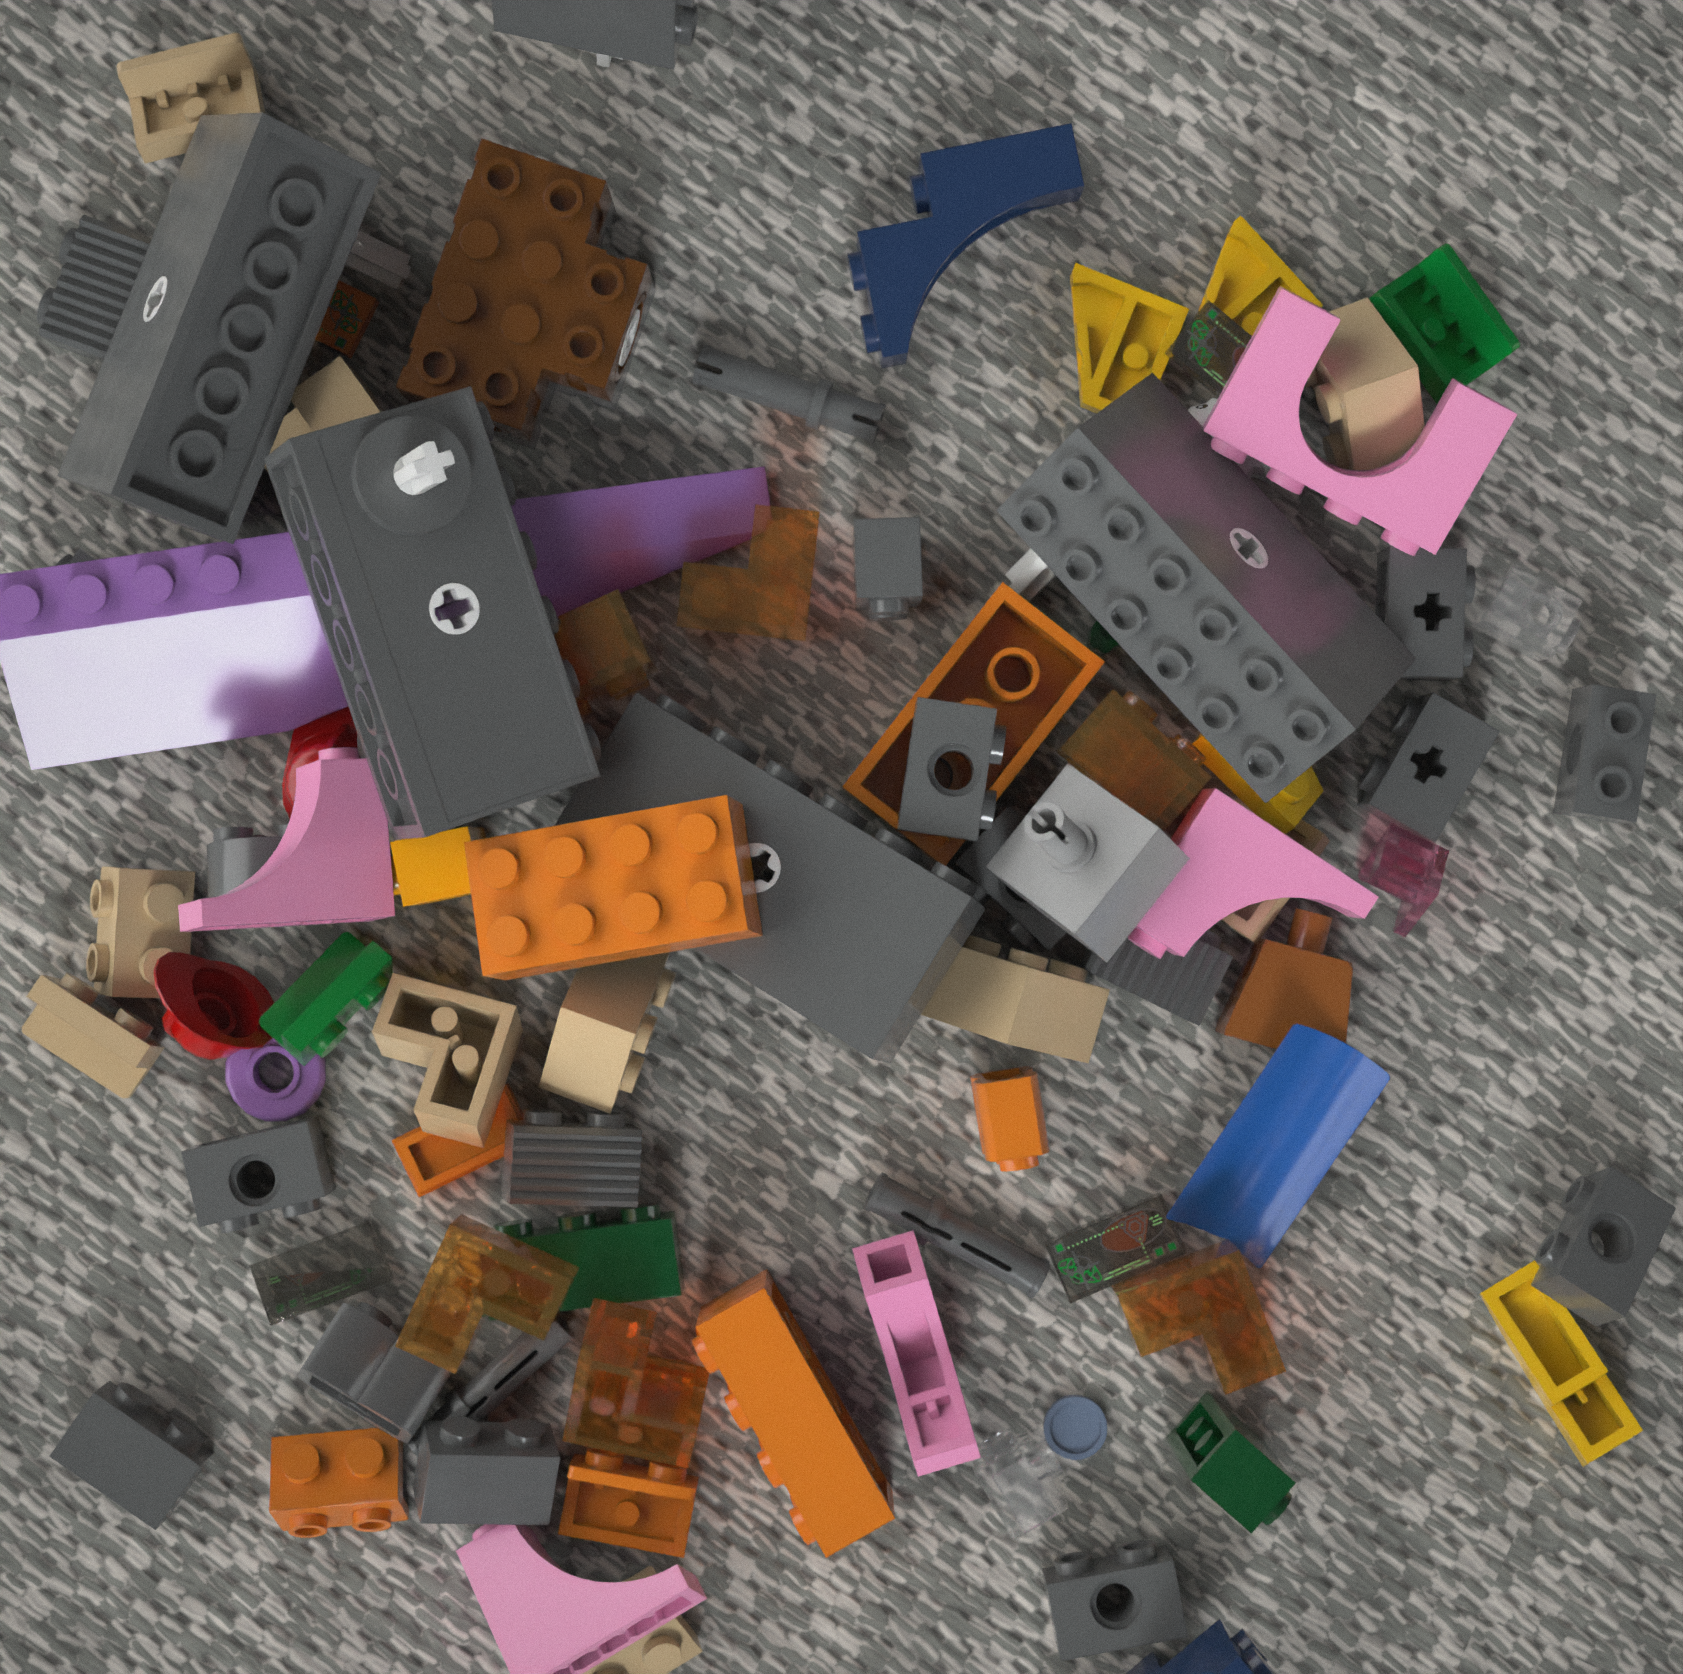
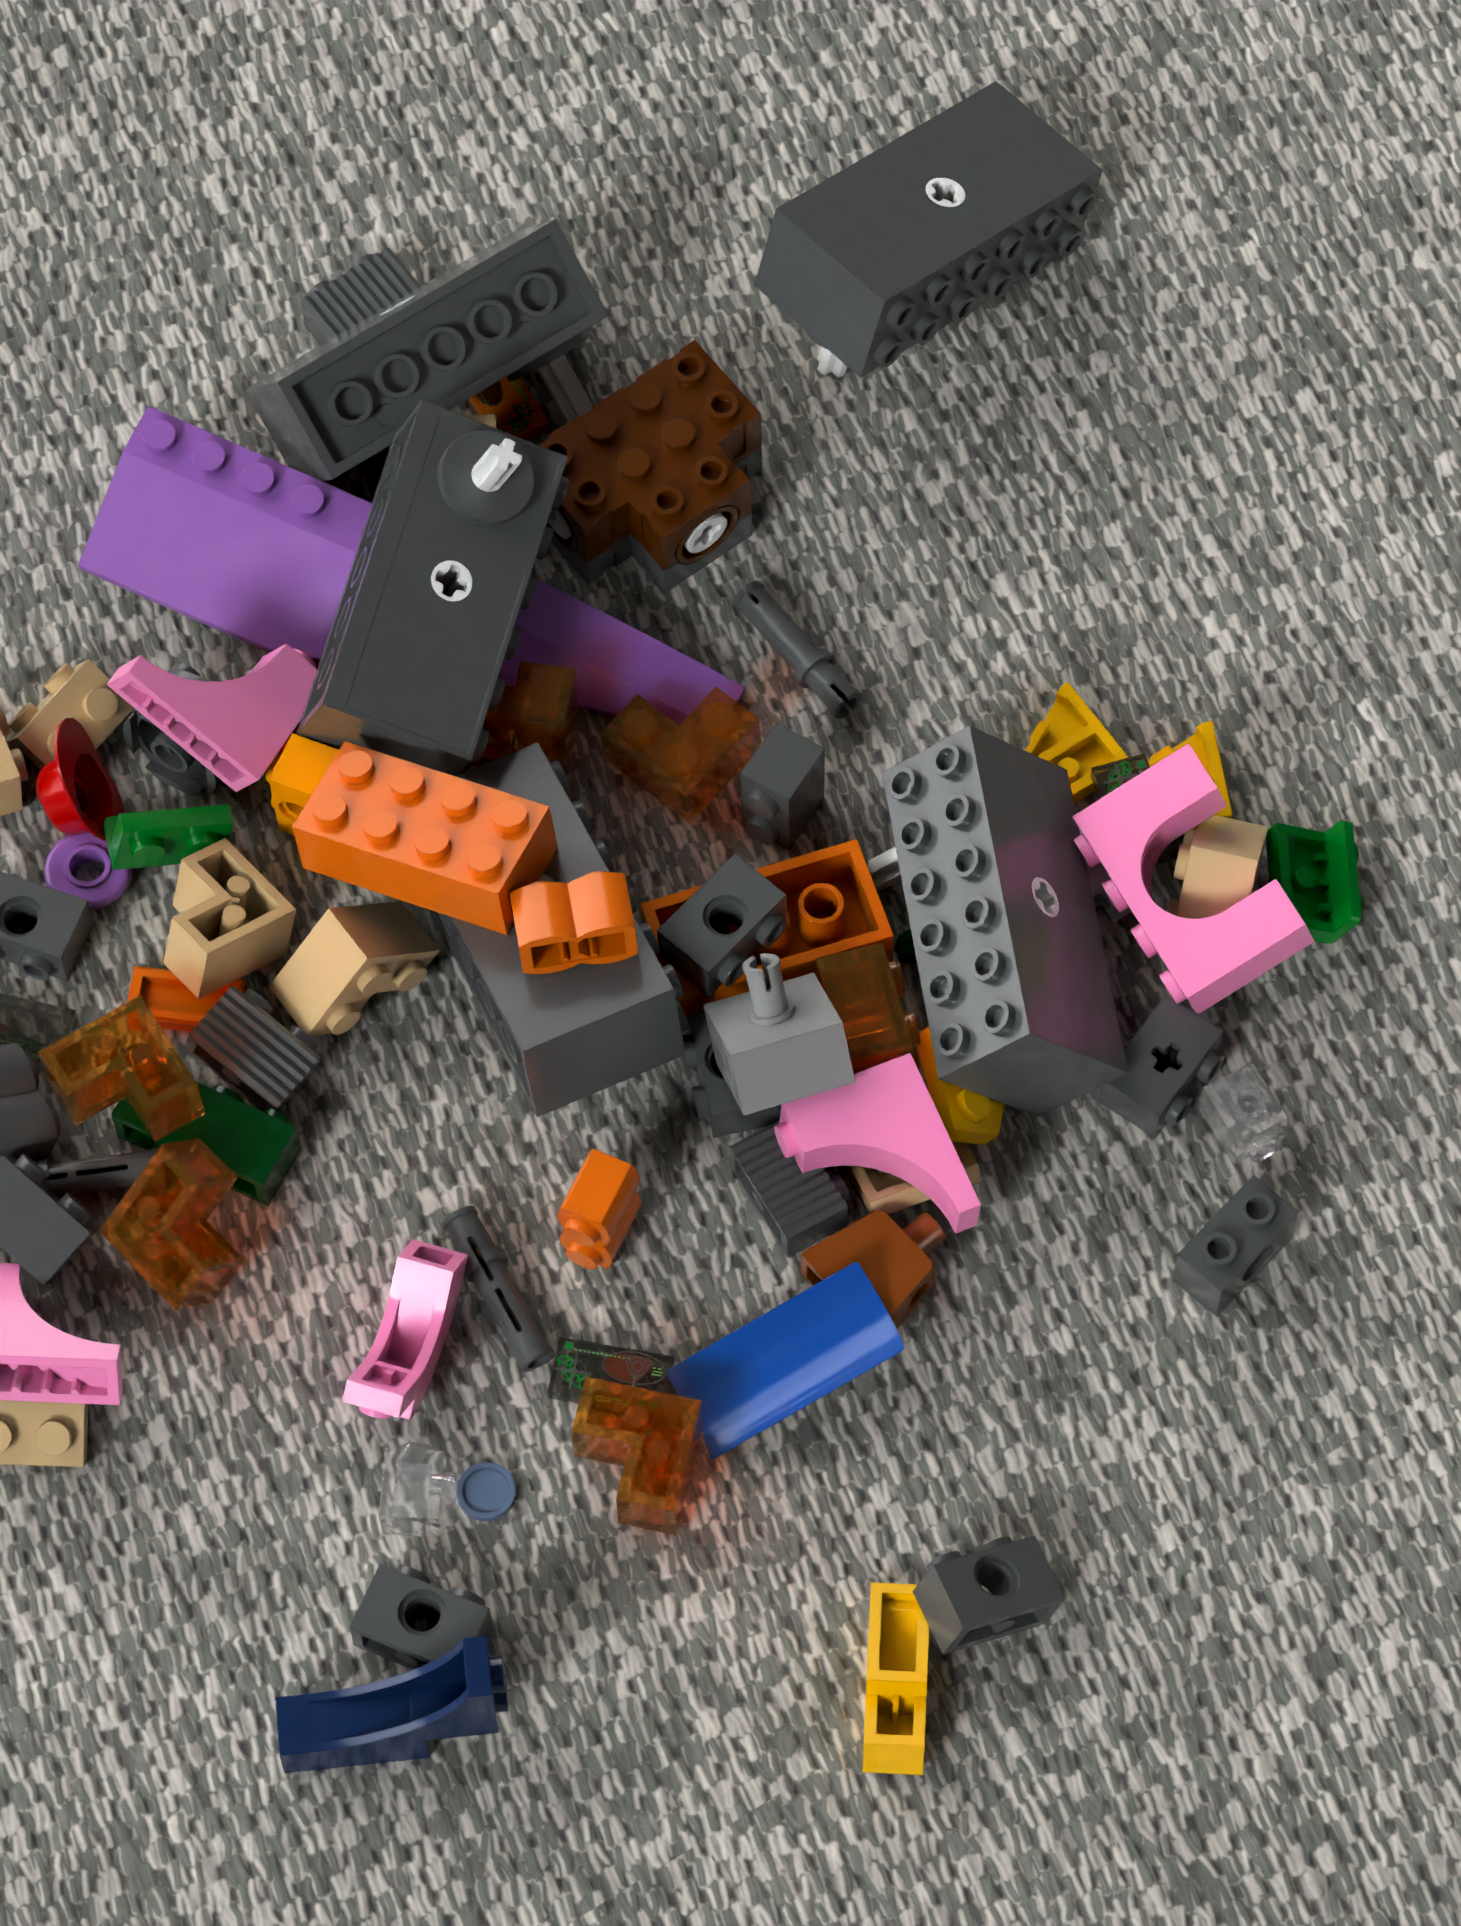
camera: 35 degrees right, 25 degrees down
(181, 84) = (509, 206): tan bracket -> none
(628, 1503) = (109, 1309): orange bracket -> none
(795, 1413) = (283, 1316): orange brick -> none
(829, 894) = (574, 922): none -> orange brick
(965, 197) = (1011, 598): dark blue arch -> none
(1020, 1000) = (666, 1139): tan brick -> none
(1231, 1463) = (584, 1543): dark green brick -> none
(1408, 870) = (1021, 1231): clear pink panel -> none
(1456, 751) = (1076, 1197): dark grey brick -> none

